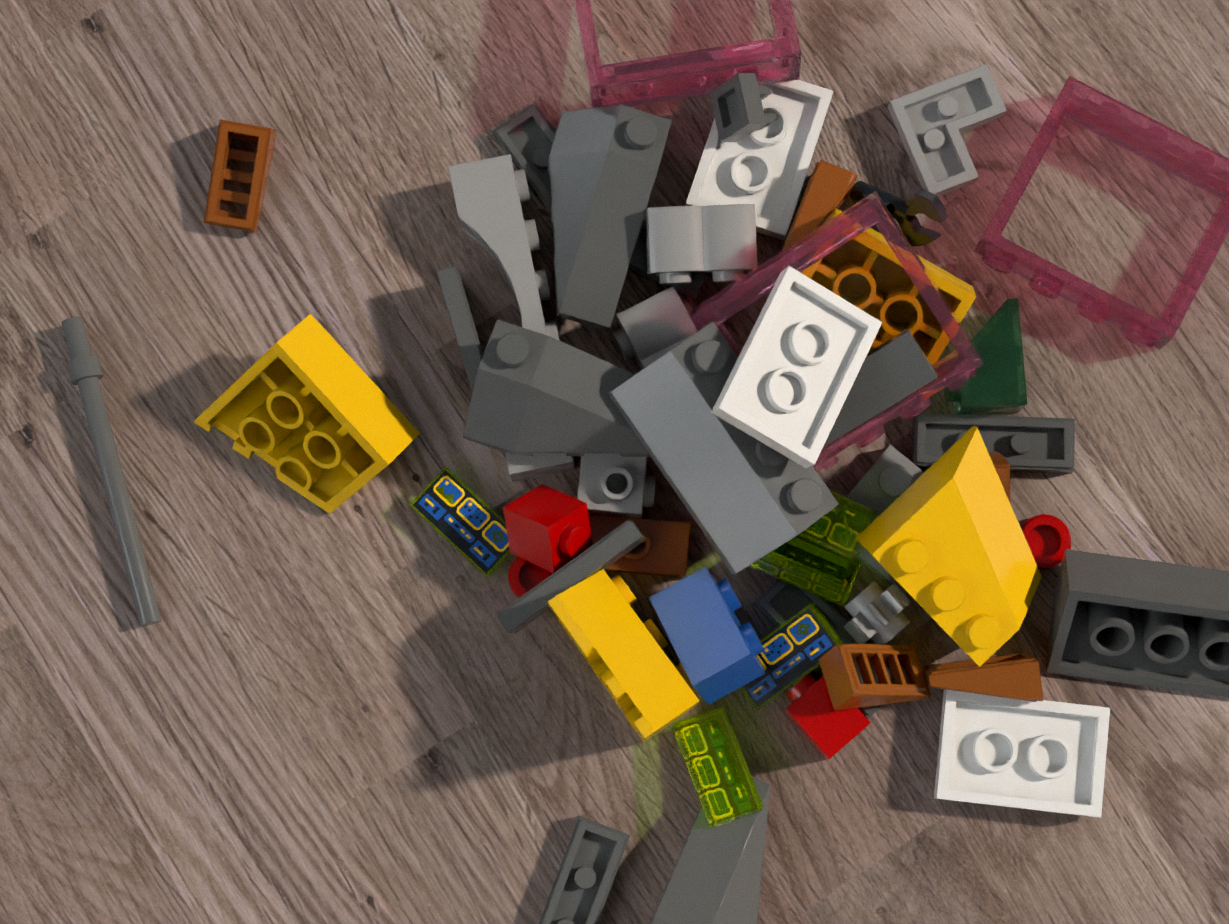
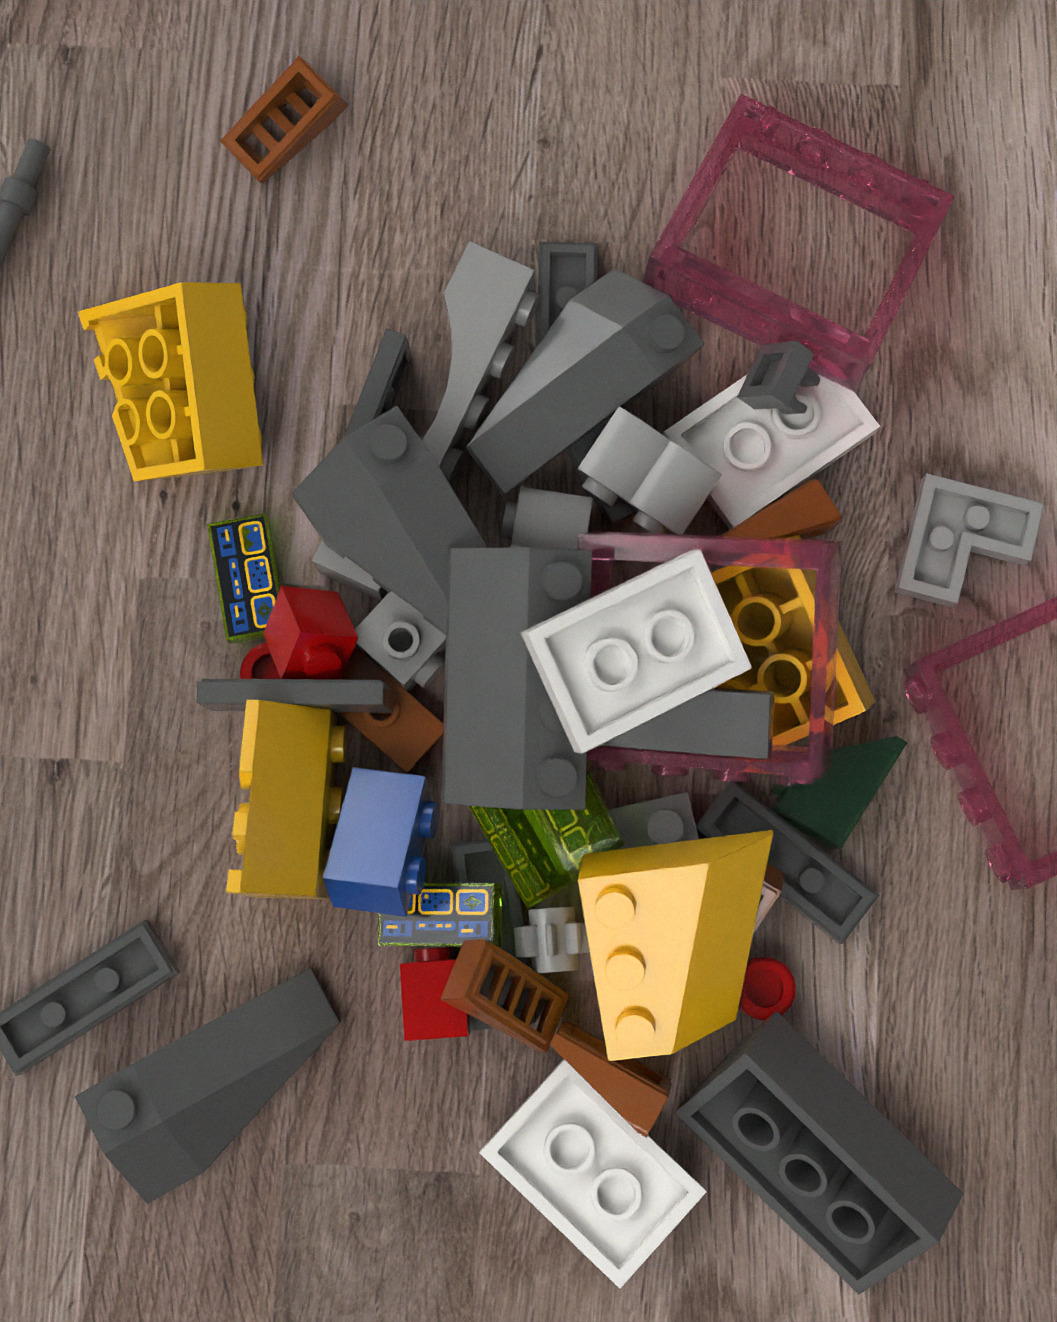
camera: 35 degrees right, 0 degrees up
(717, 767) = (300, 970): clear neon green tile -> none
(905, 211) = (862, 585): black bar -> none

